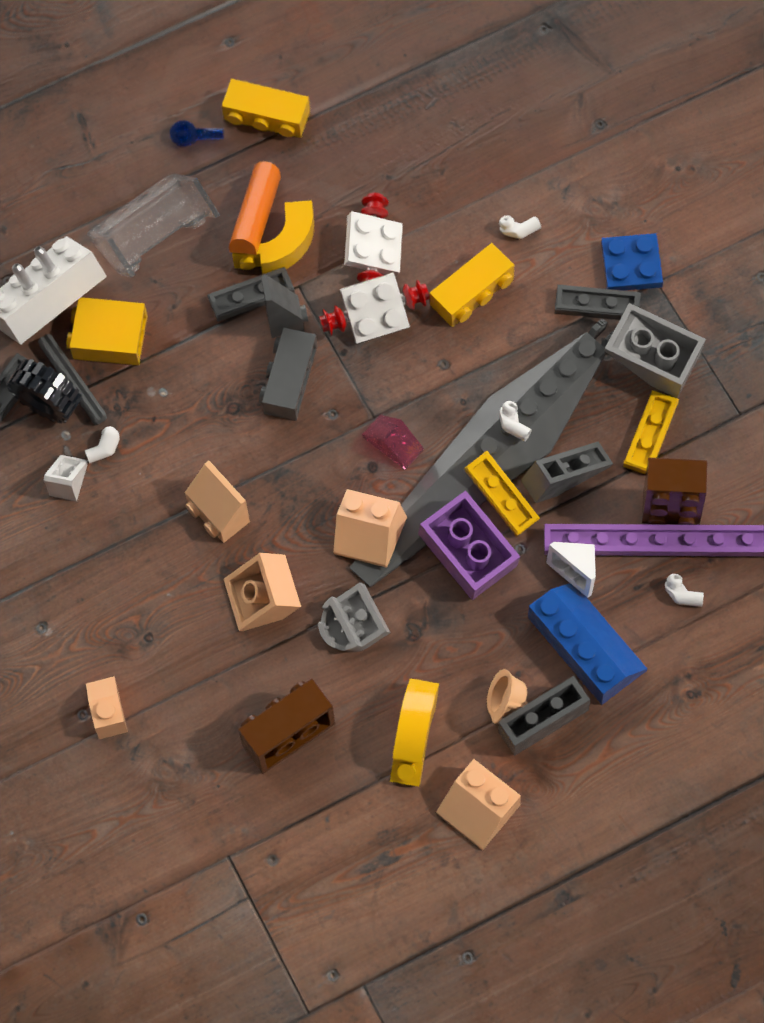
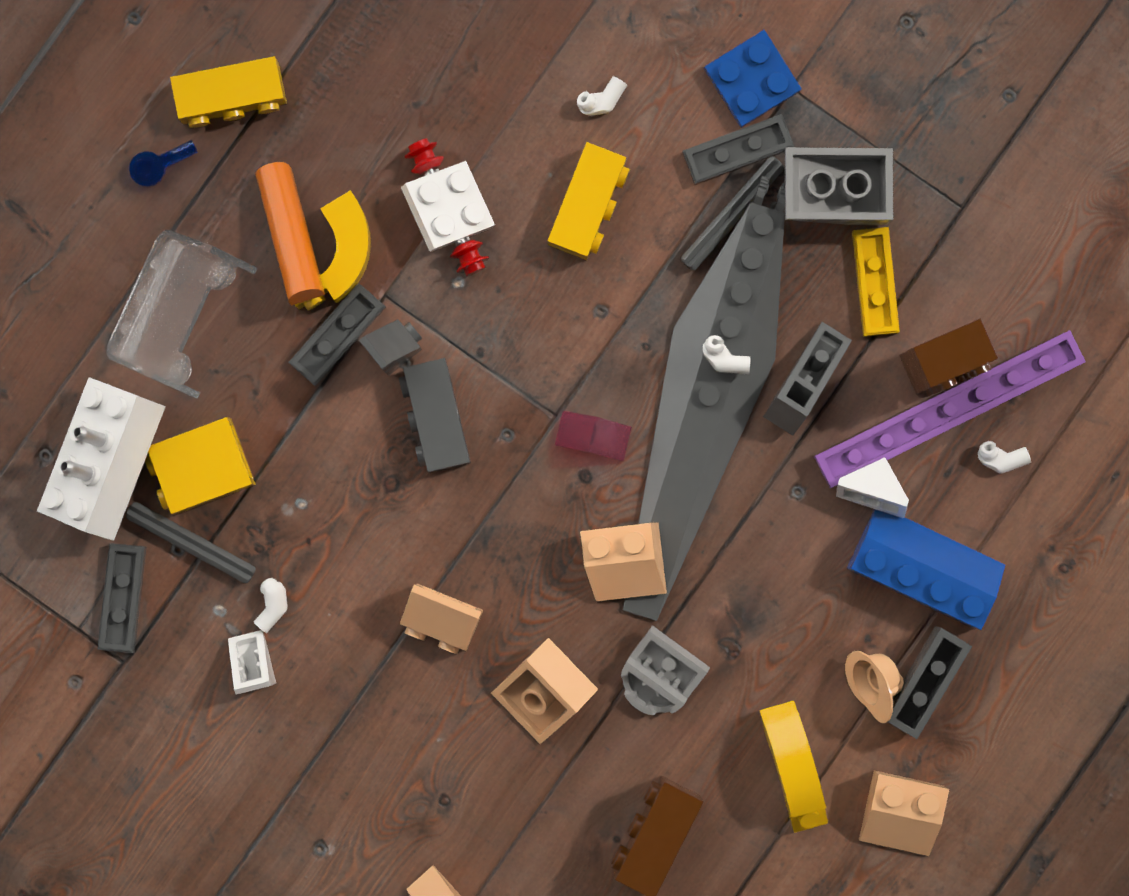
camera: 35 degrees left, 20 degrees up
(44, 391) = (173, 585): black bush -> none
(374, 308) = (491, 287): white plate -> none
(468, 545) = (747, 527): medium lavender brick -> none
(501, 493) = (749, 443): yellow tile -> none
(546, 349) = (729, 215): none -> dark grey axle

